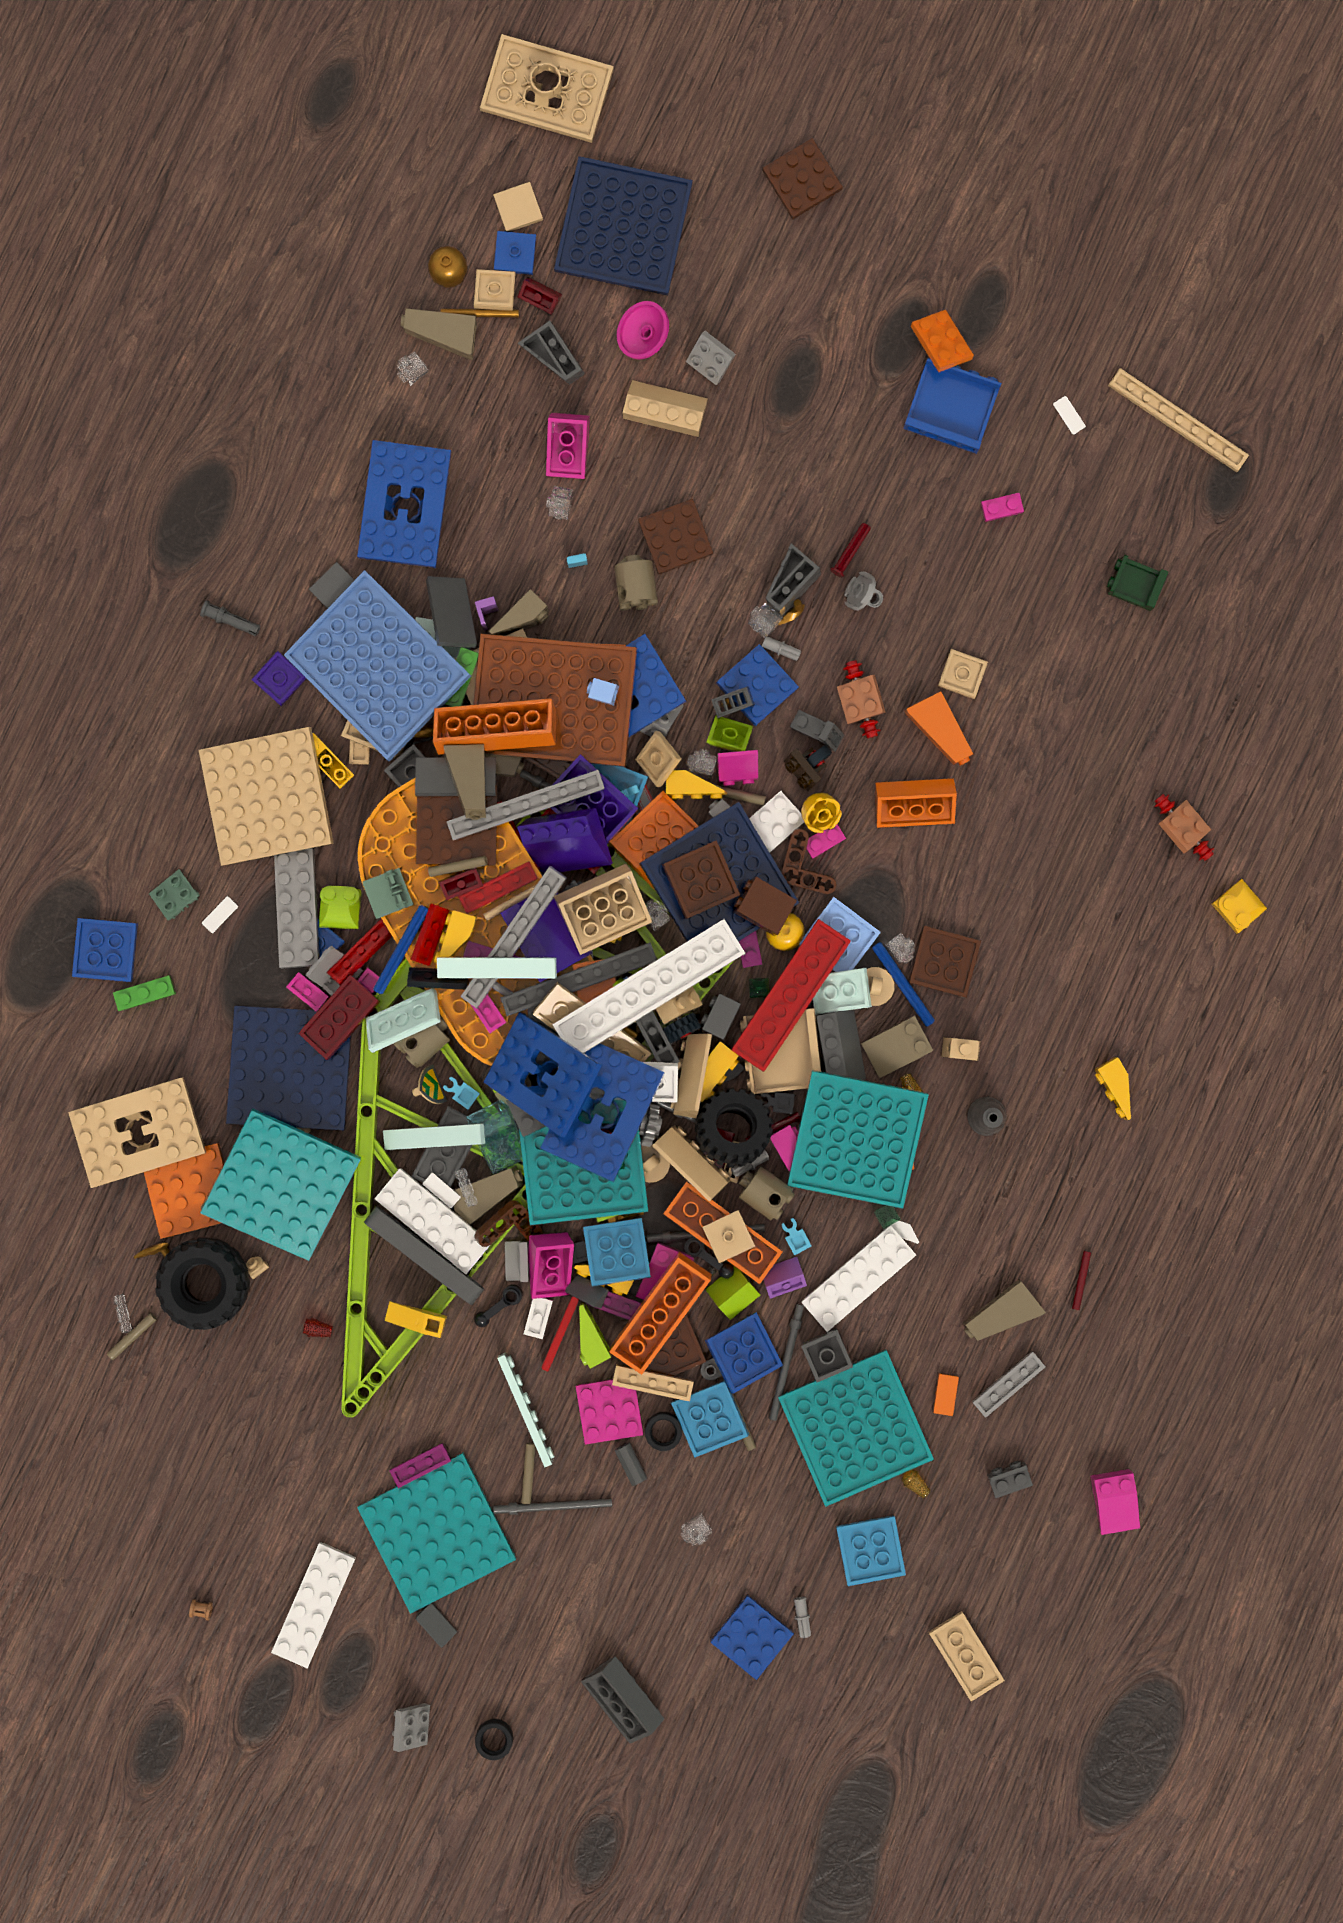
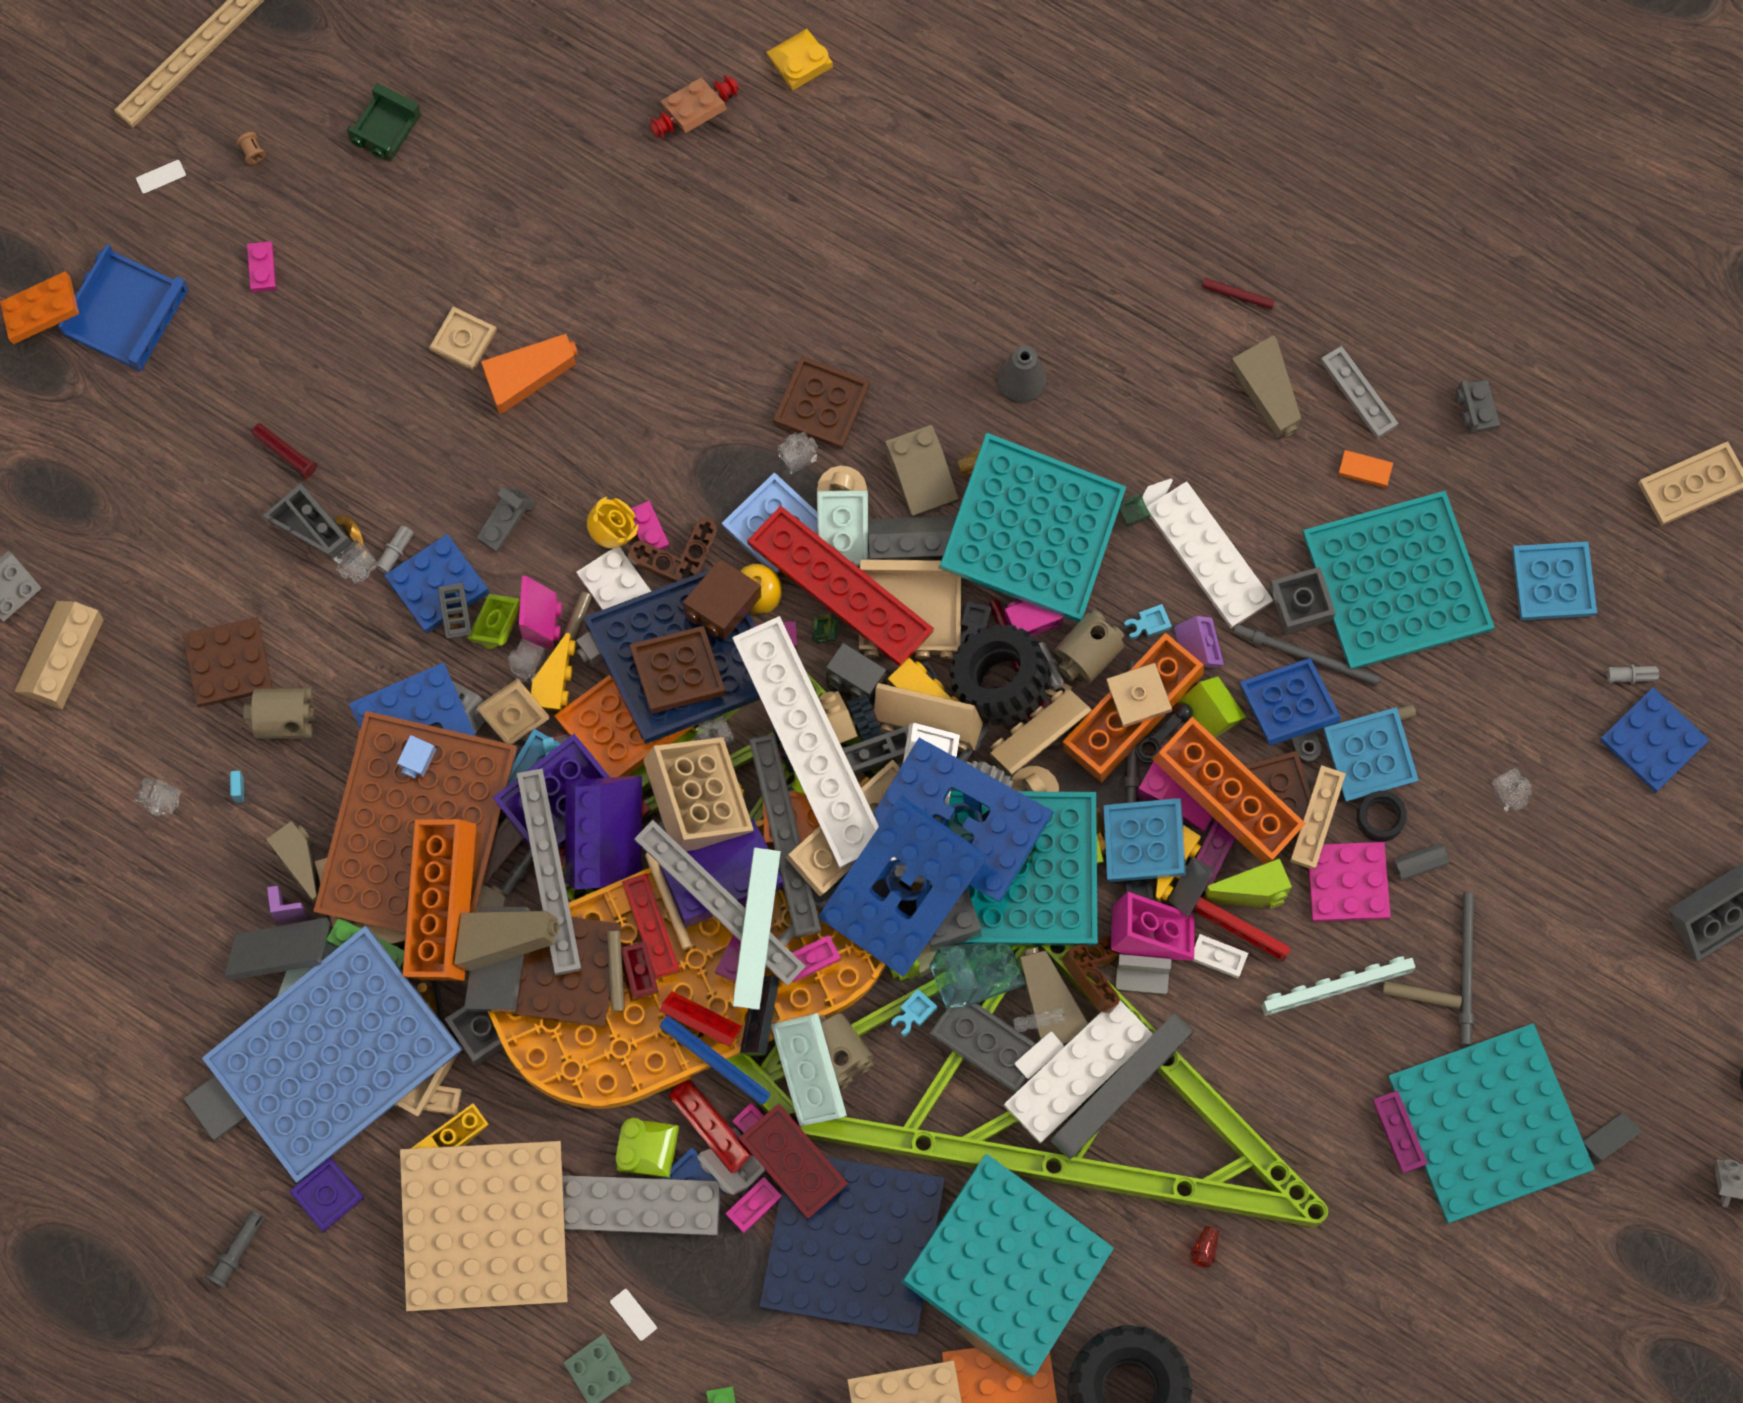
camera: 85 degrees left, 15 degrees down
(256, 1266) = (1113, 1317): tan plate -> none
(313, 1605) = (1574, 1298): white plate -> none
(387, 893) = (638, 1068): sand green hinge -> none
(403, 539) = (167, 1008): blue plate -> none
(416, 1319) = (1205, 1105): yellow slope -> none
(430, 1086) = (901, 1050): shield -> none
(434, 1136) = (967, 1052): light aqua tile -> none
(458, 933) = (703, 982): yellow slope -> none
(483, 1318) = (1213, 1029): black piece -> none
(567, 445) = (84, 780): dark pink slope -> none
(804, 768) = (551, 533): dark brown plate -> none
(860, 592) = (339, 440): light grey tile -> none
(861, 699) = (475, 460): nougat plate -> none
(903, 984) = (842, 456): blue axle -> none
(914, 1482) = (1473, 517): clear yellow cone -> none
(915, 803) = (616, 412): orange slope -> none
(961, 1049) = (935, 392): tan torso -> none
(1101, 481) = (251, 148): none -> medium nougat bush
(1116, 1082) = (999, 221): yellow slope -> none
(1116, 1501) = (1514, 286): dark pink slope -> none

